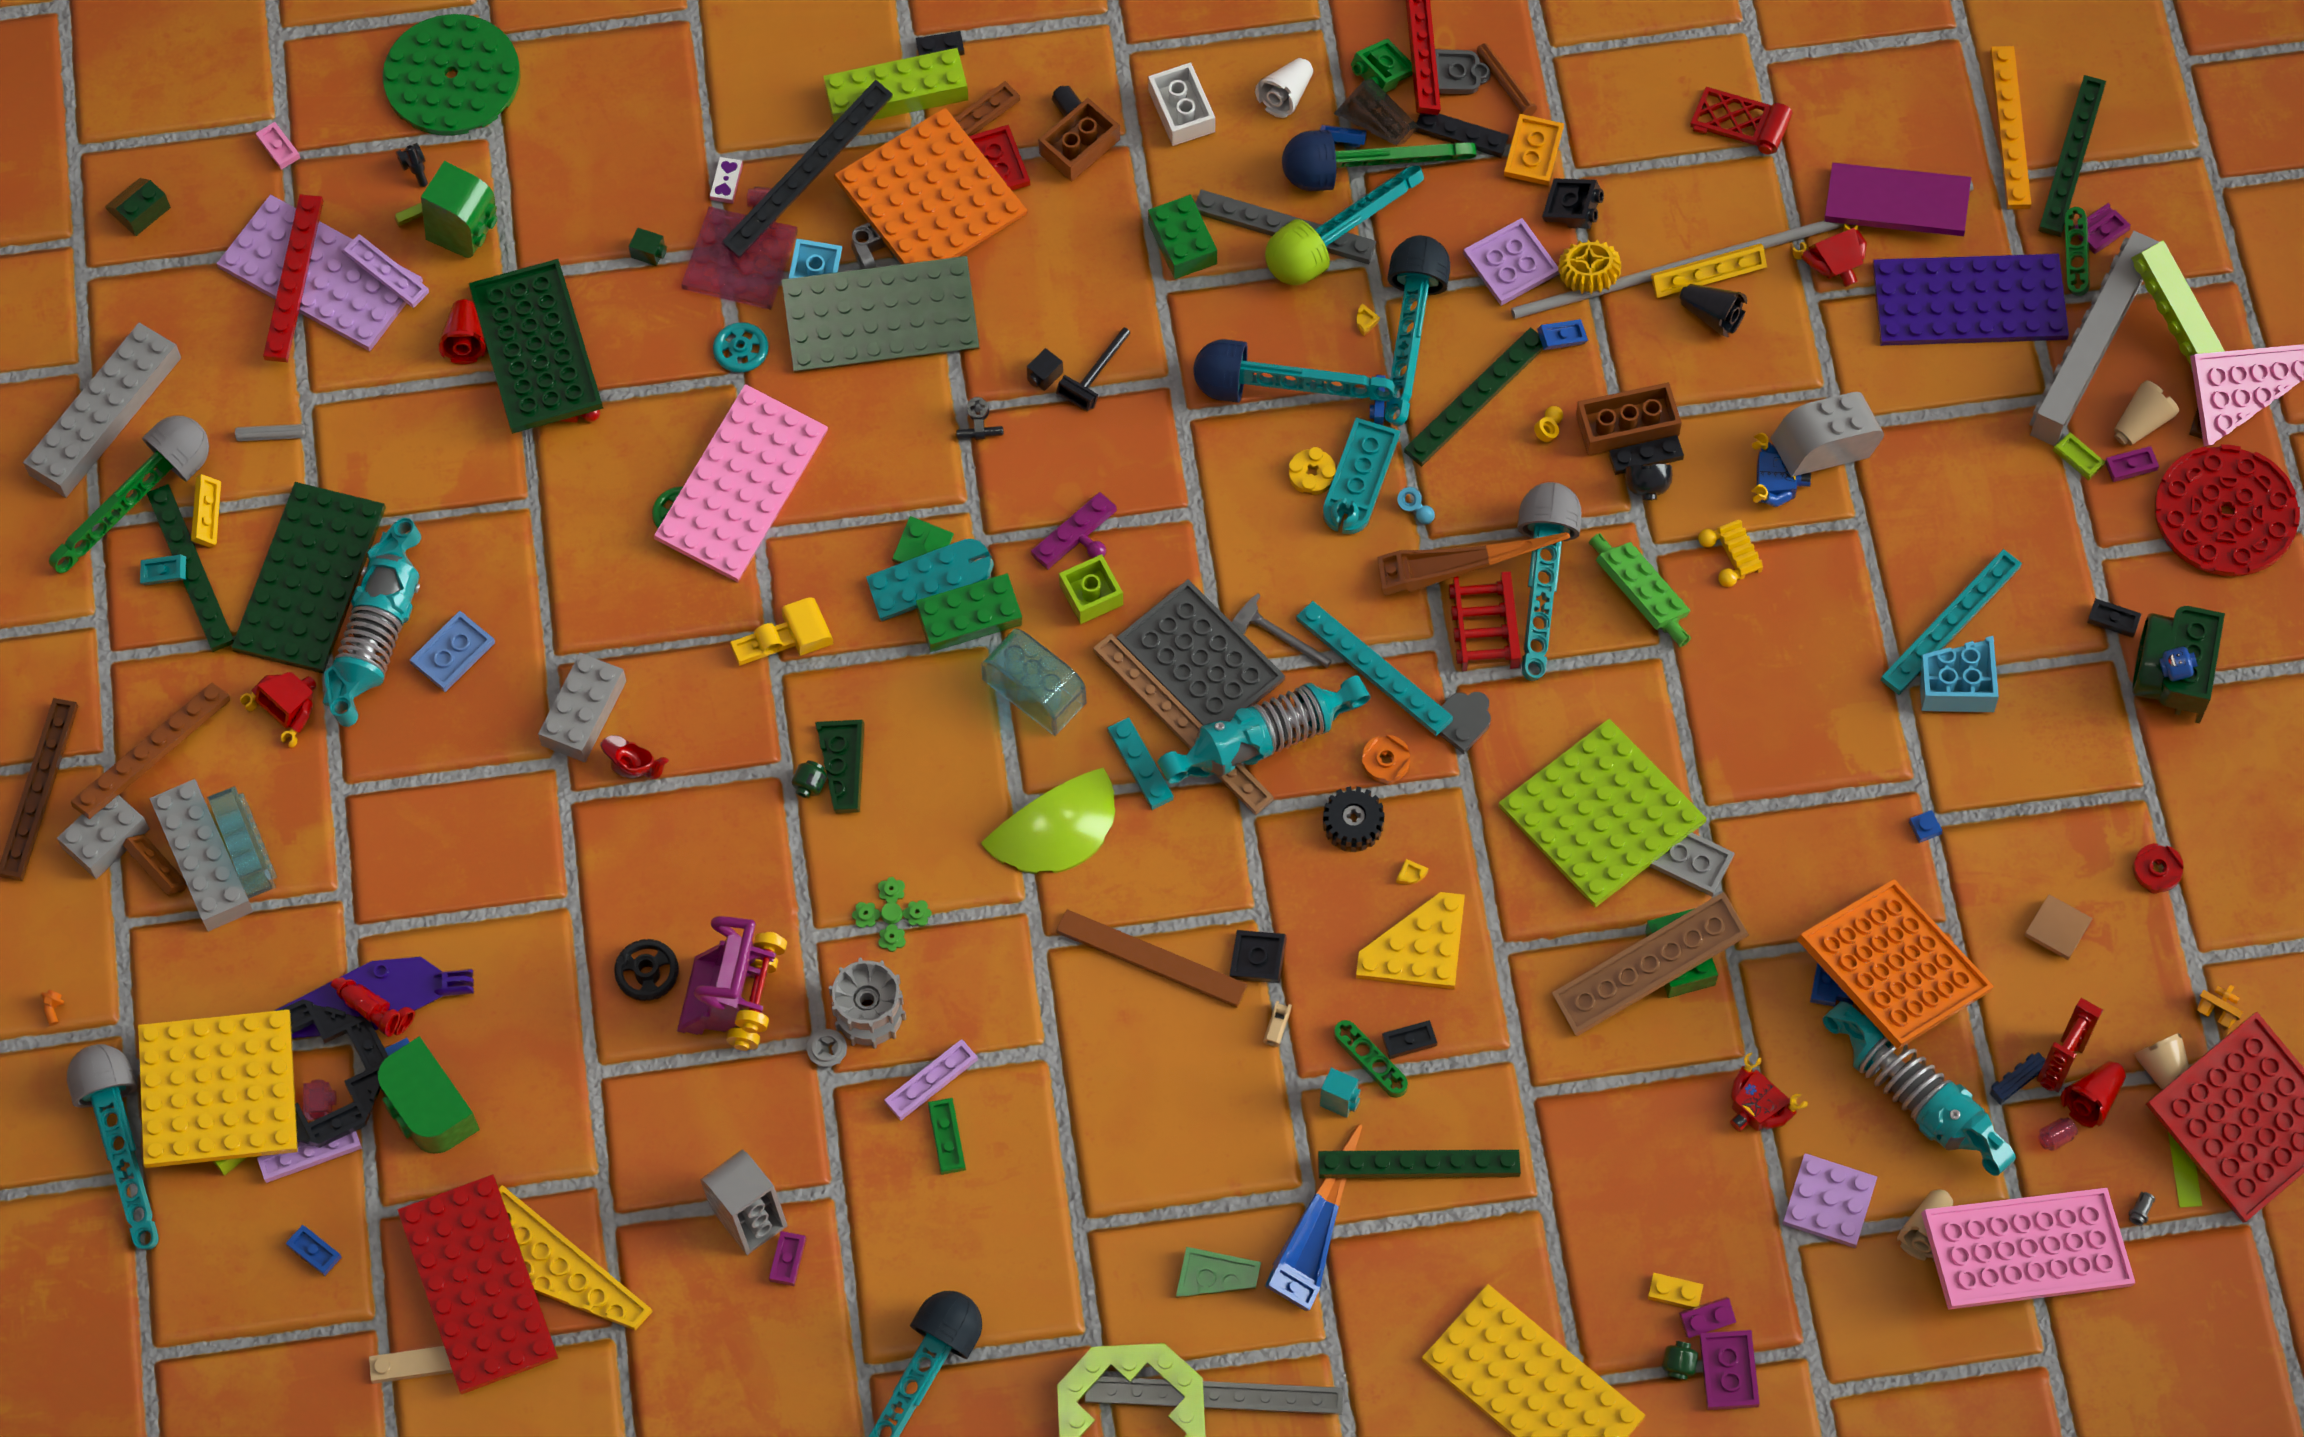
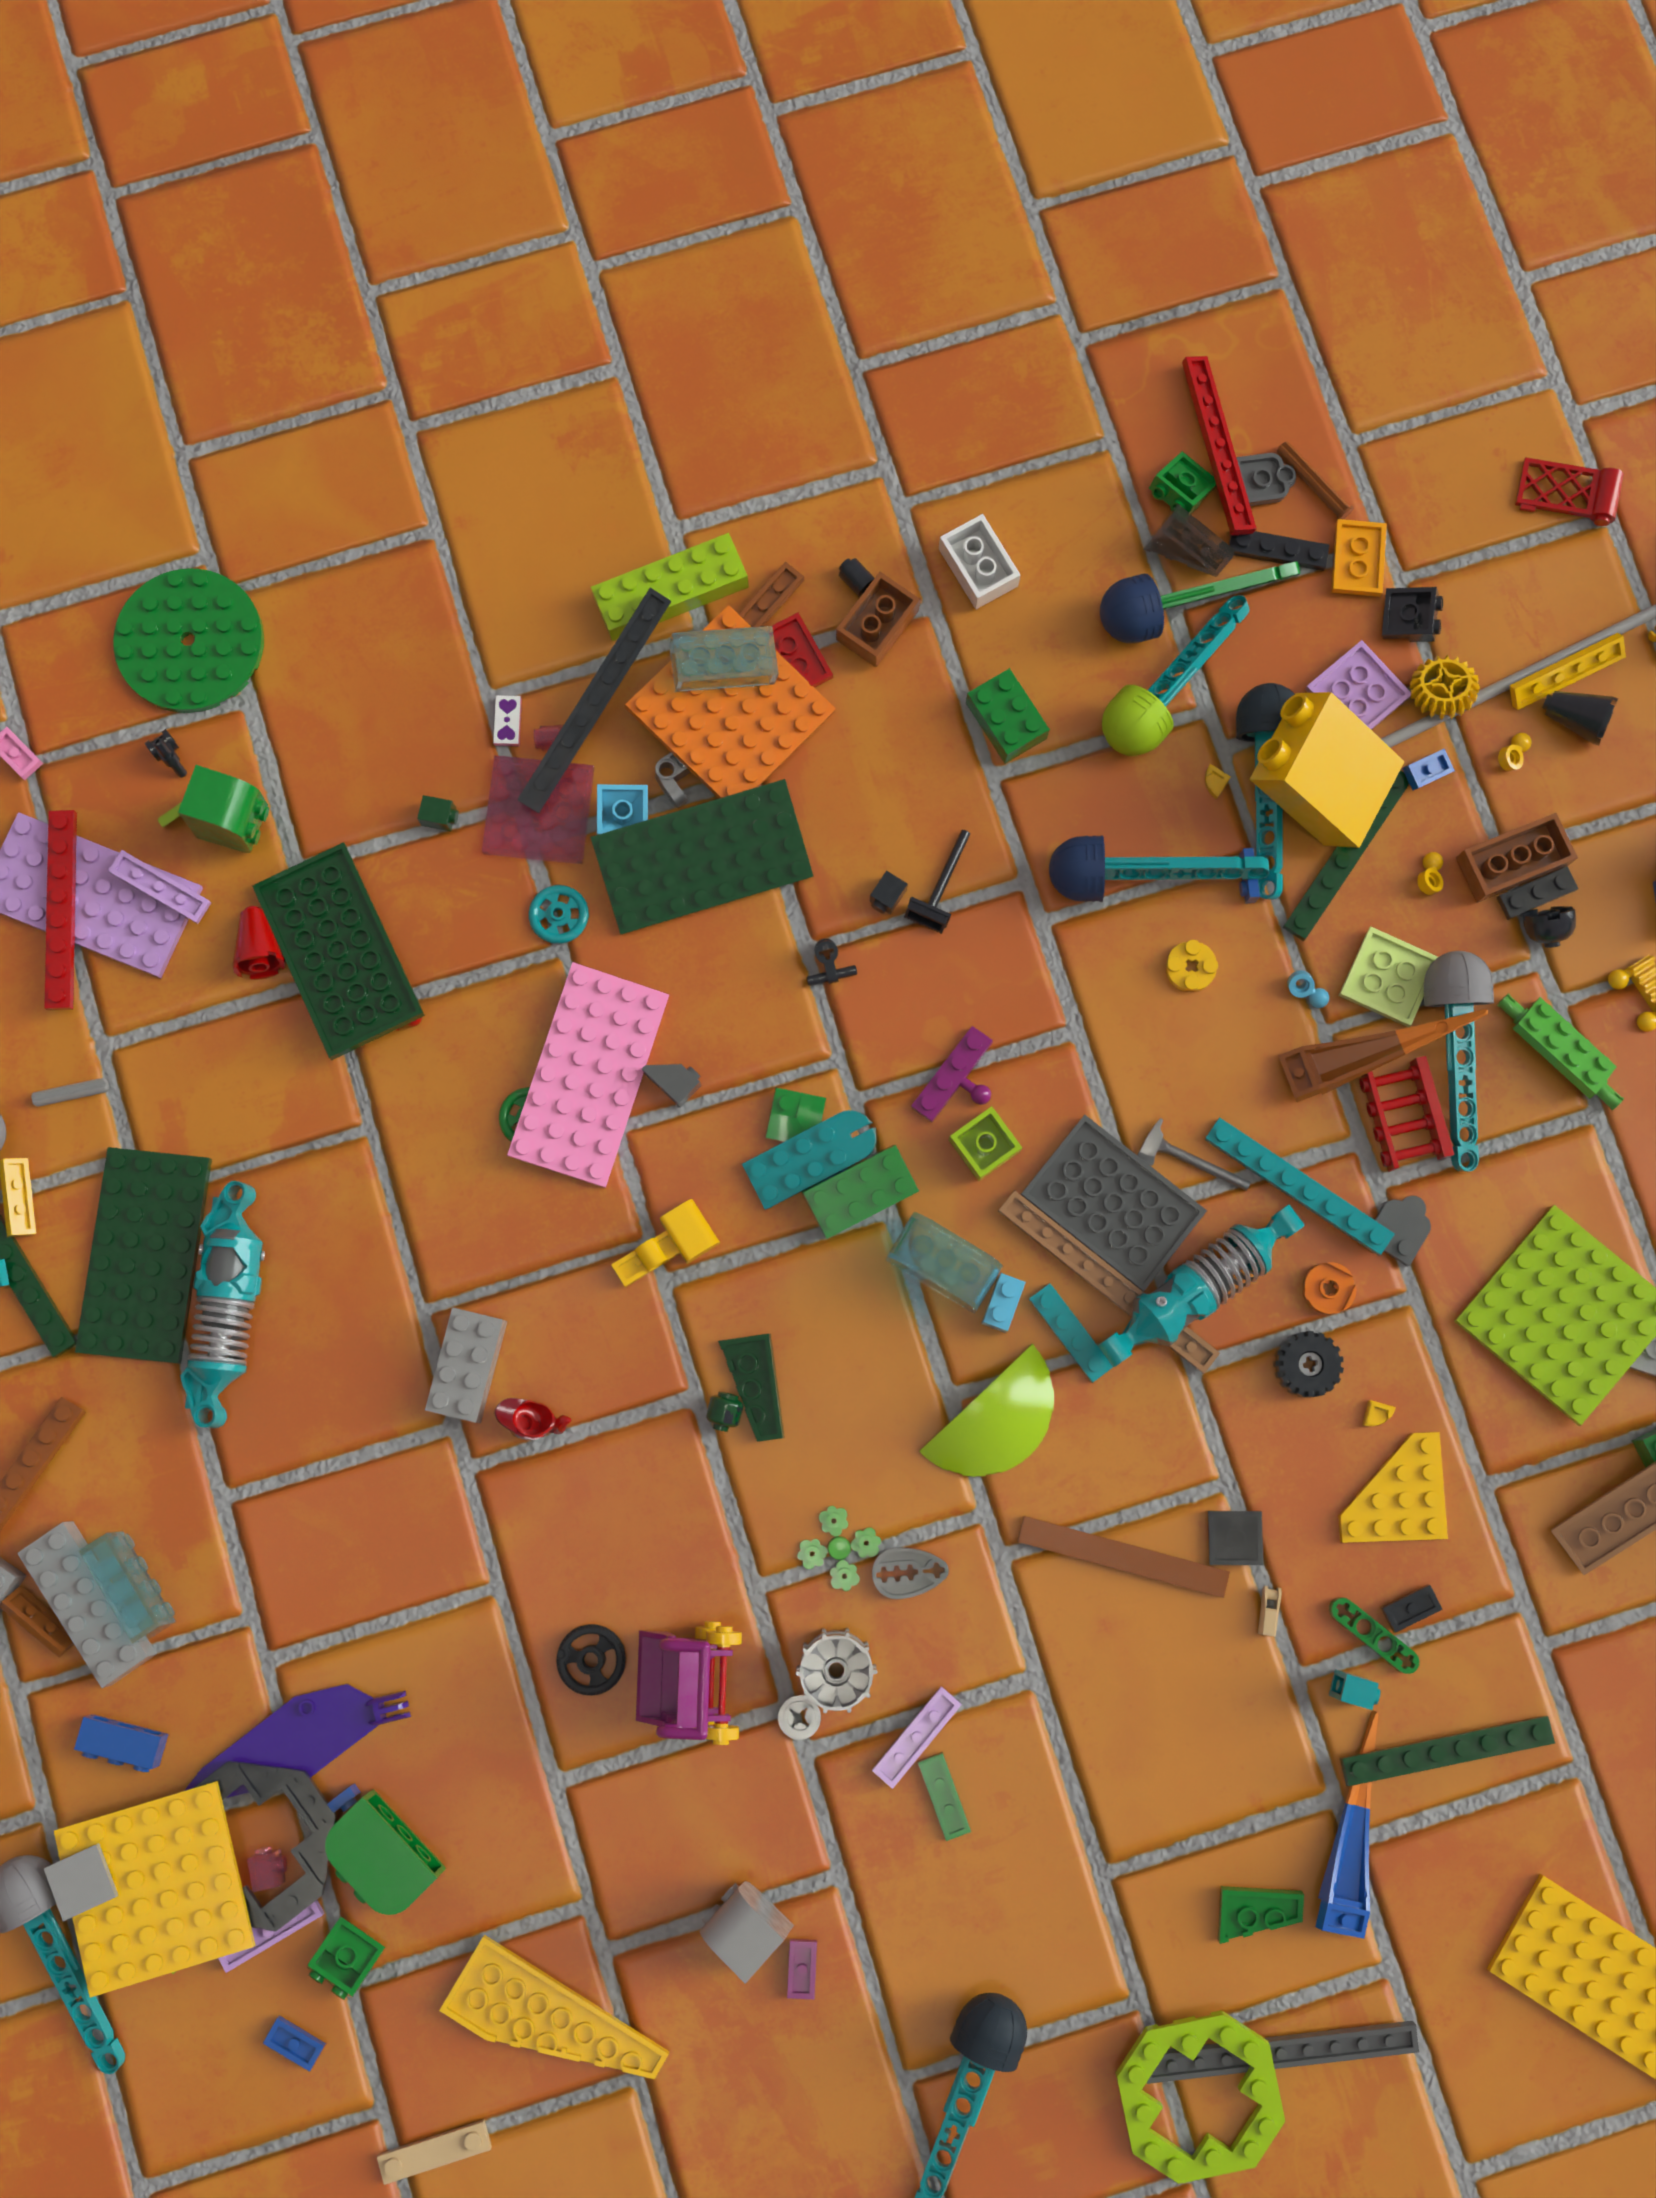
camera: 10 degrees left, 15 degrees up
(156, 1065) = (81, 1882): none -> light grey tile
(208, 975) = (121, 1742): none -> blue brick
(285, 699) = (144, 1408): red torso -> none
(373, 1007) = (302, 1757): red piece -> none
(373, 1185) = (345, 1959): none -> green plate
(452, 651) = (314, 1319): medium blue plate -> none
(477, 1284) = (477, 2060): red plate -> none
(817, 498) = (674, 1081): none -> dark grey slope
(930, 147) = (723, 658): none -> clear light blue brick
(940, 42) = (707, 528): black plate -> none
(950, 928) = (902, 1557): none -> dark grey piece
(1082, 726) = (1003, 1303): none -> medium azure brick
(1270, 221) = (1101, 683): dark grey plate -> none
(1284, 87) = (1085, 526): white cone -> none
(1352, 137) = (1158, 570): blue plate -> none
(1360, 475) = (1243, 964): teal plate -> none
(1458, 311) = (1326, 769): none -> yellow brick
(1489, 504) = (1388, 977): none -> yellowish green plate
(1643, 334) = (1511, 756): none -> yellow plate

